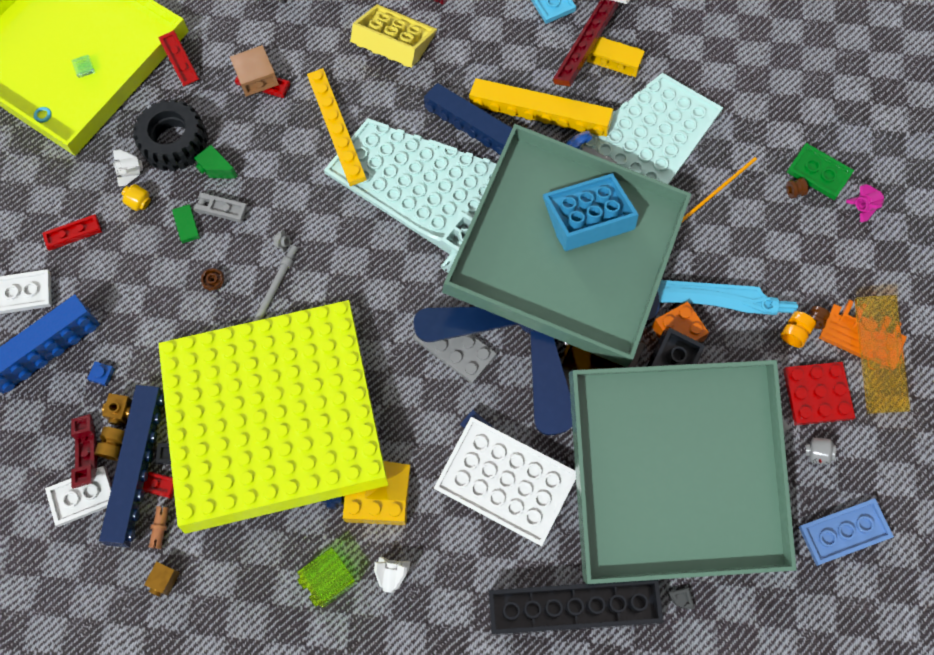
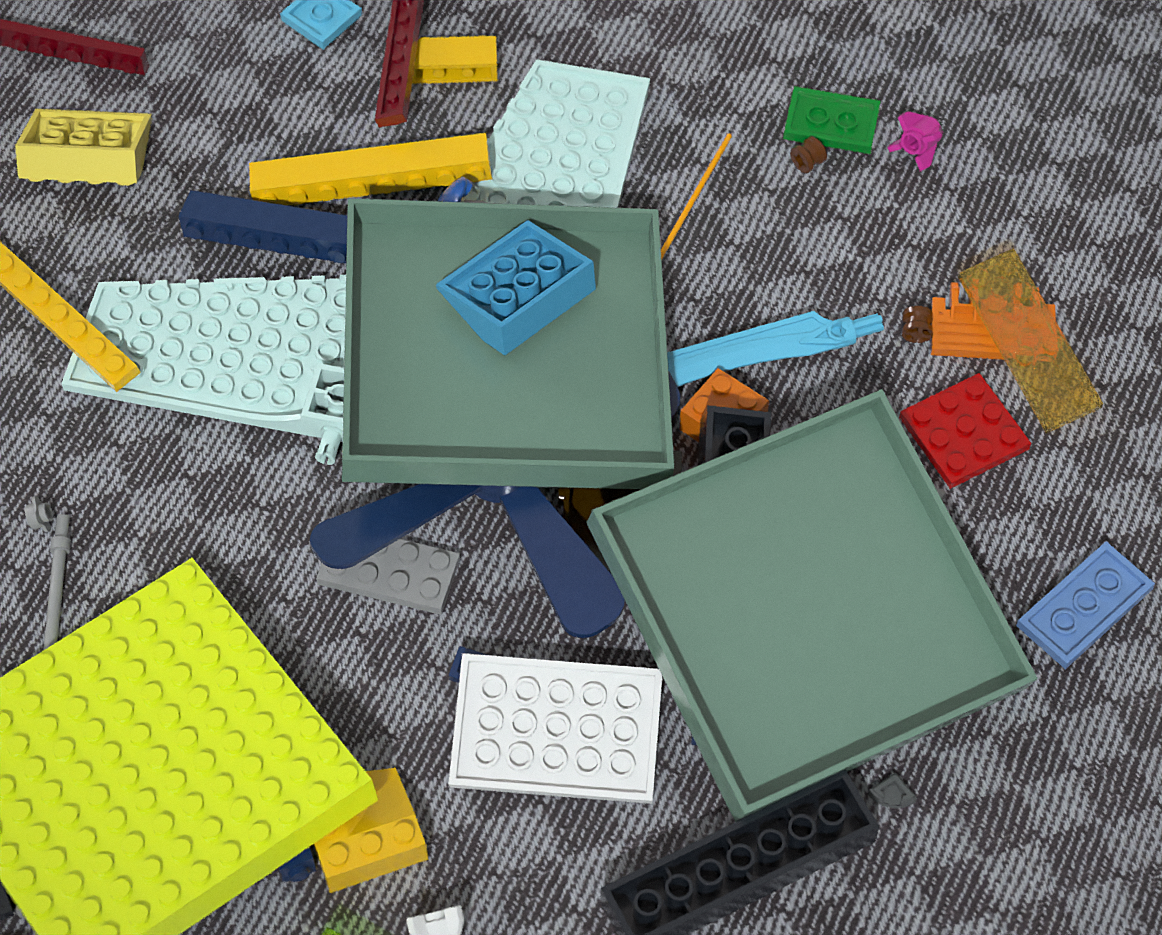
camera: 25 degrees left, 10 degrees down
(798, 328) = (896, 350): light orange wheel -> none
(821, 451) = (1002, 506): light grey head -> none

